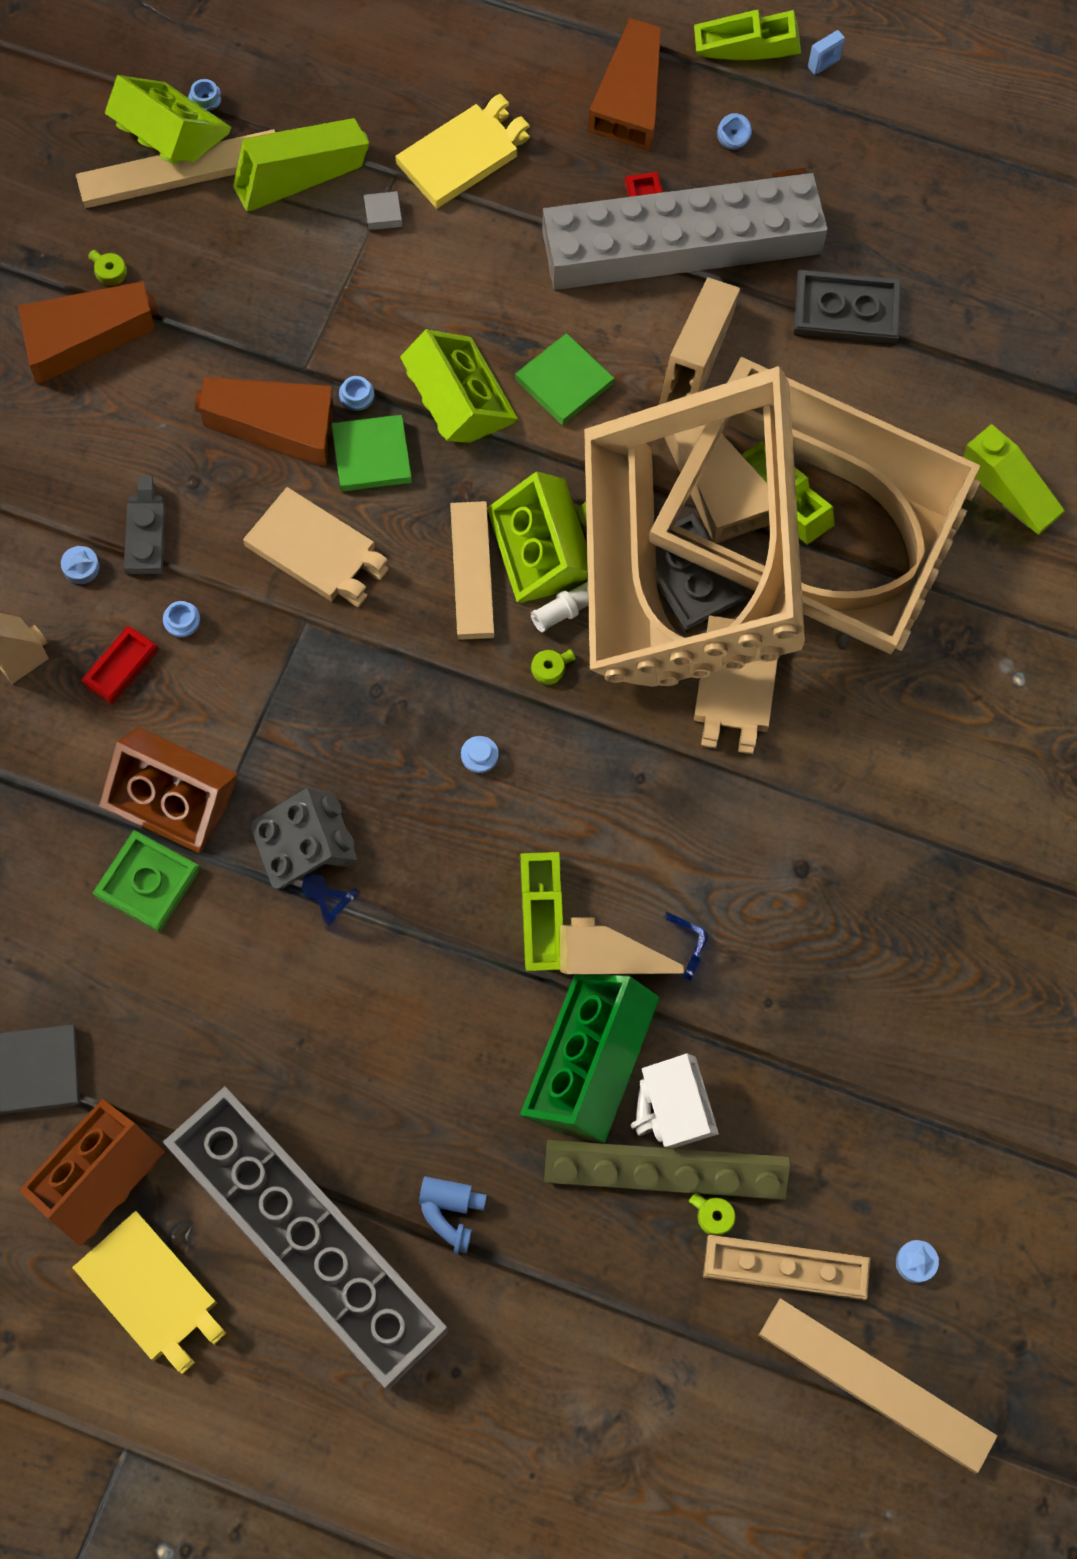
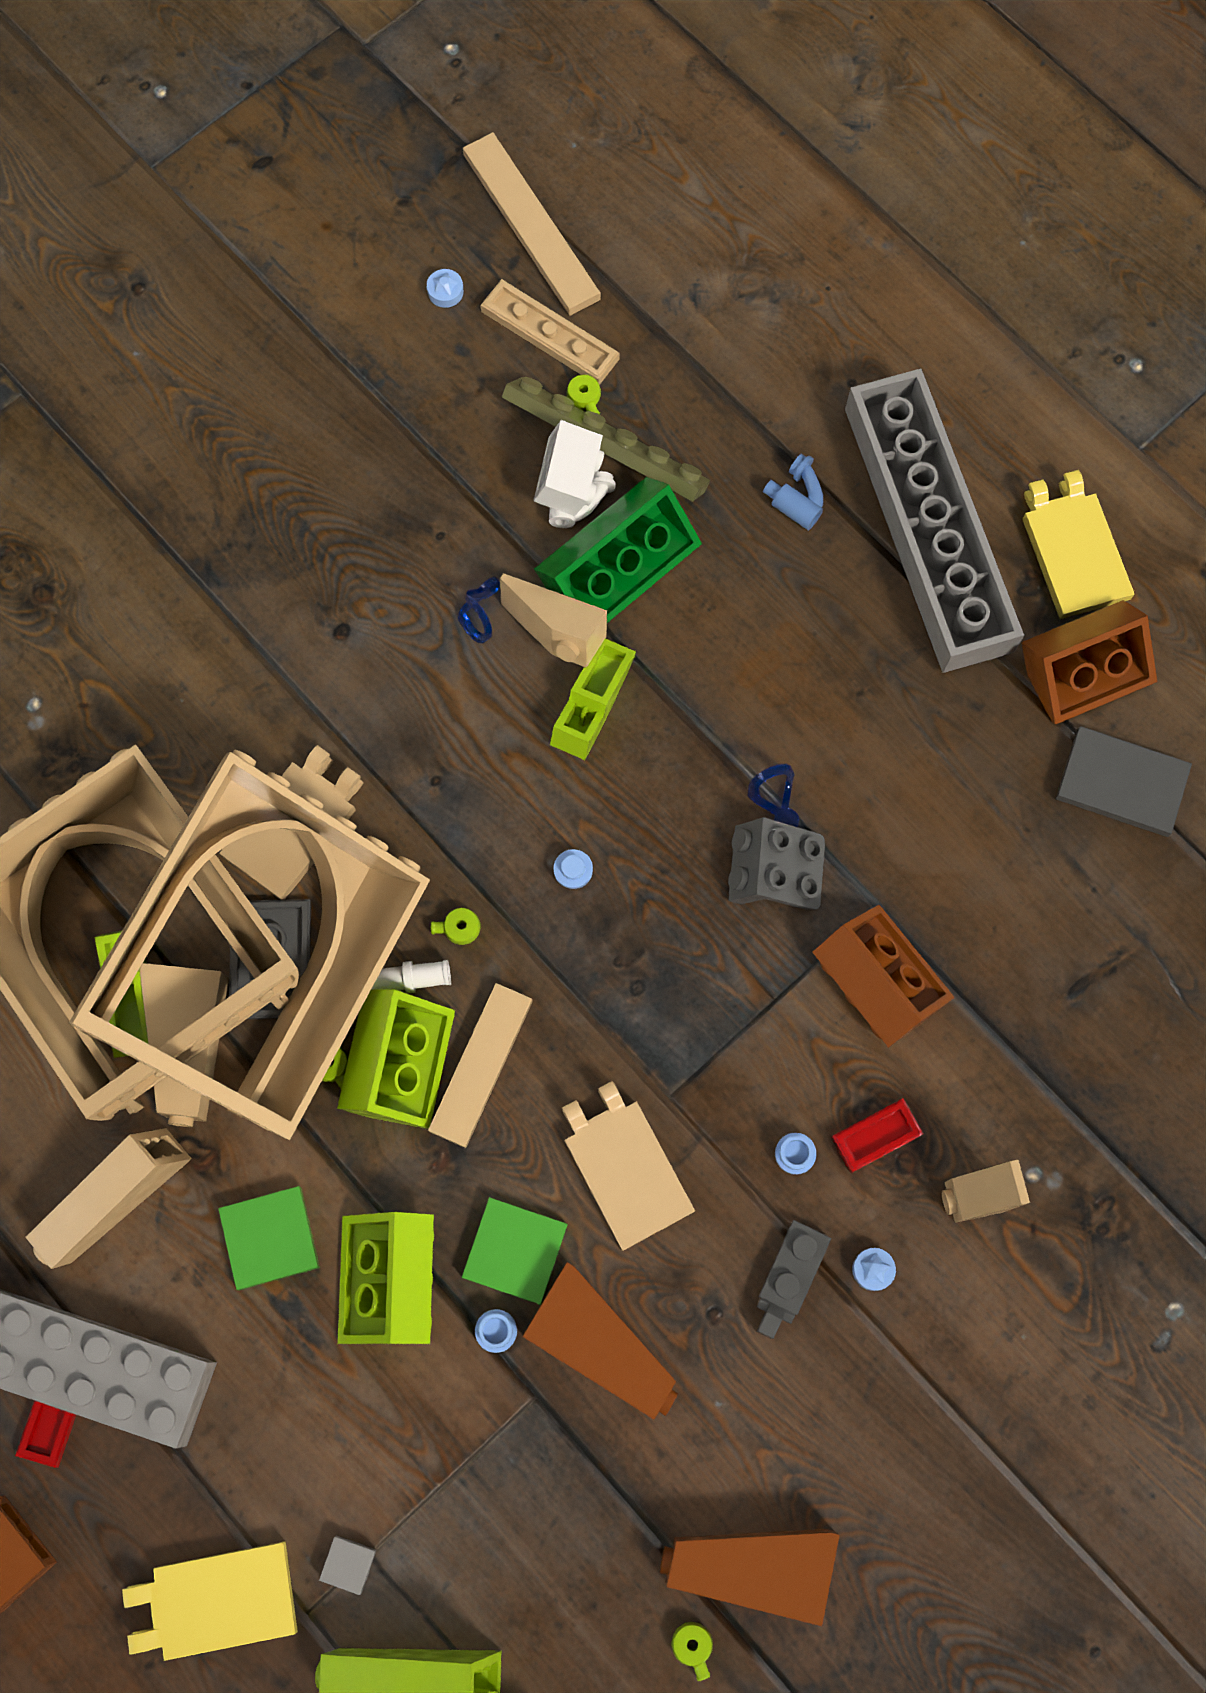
camera: 150 degrees left, 5 degrees up
(146, 881) = (938, 900): bright green tile -> none

